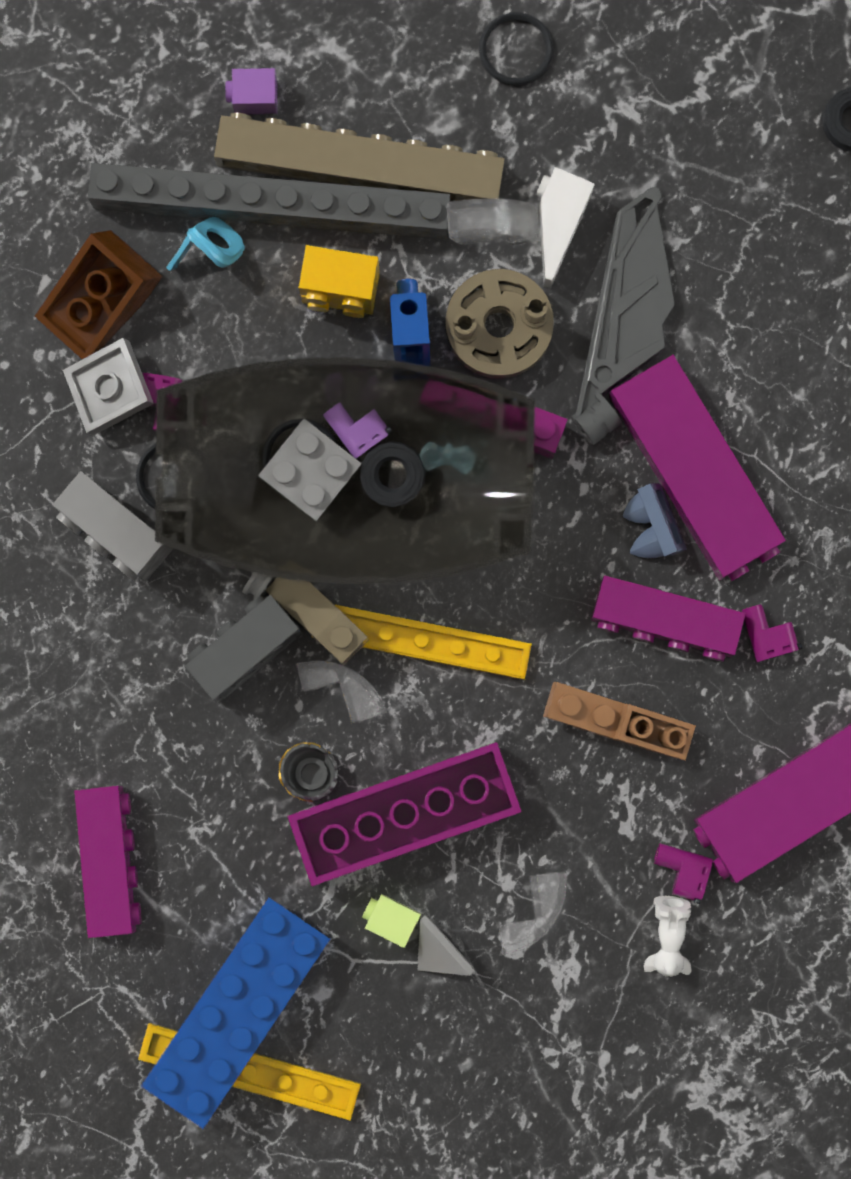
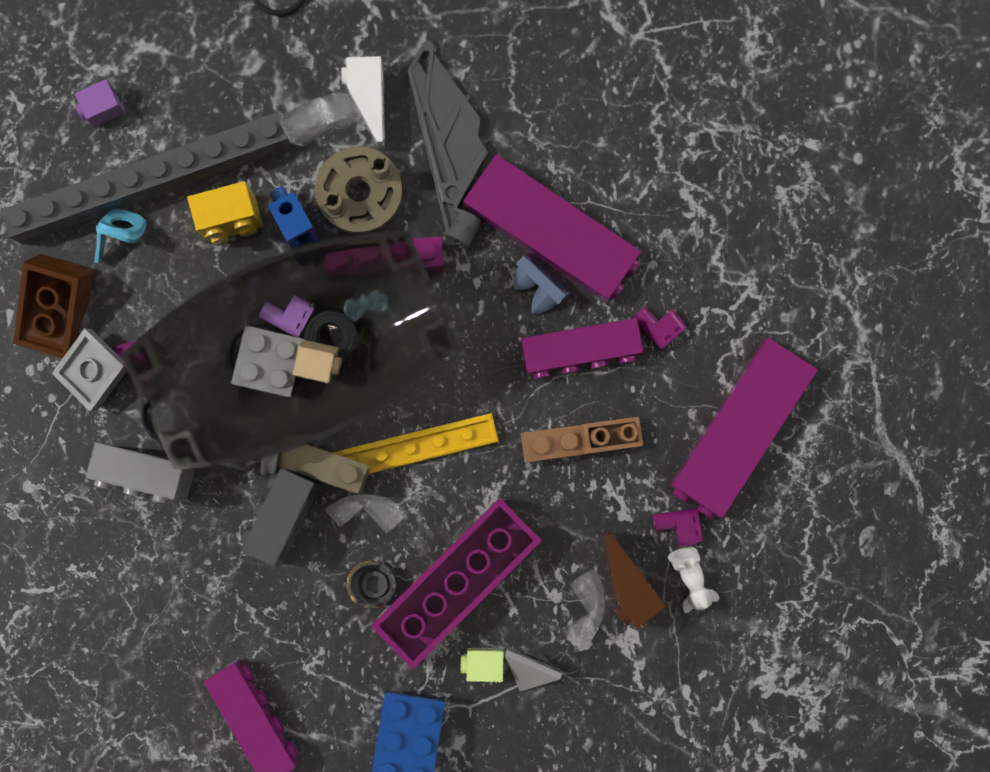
camera: 30 degrees left, 0 degrees up
(355, 160) = (189, 121): dark tan brick -> none
(365, 495) = (317, 361): none -> tan brick
(594, 913) = (629, 589): none -> reddish brown slope

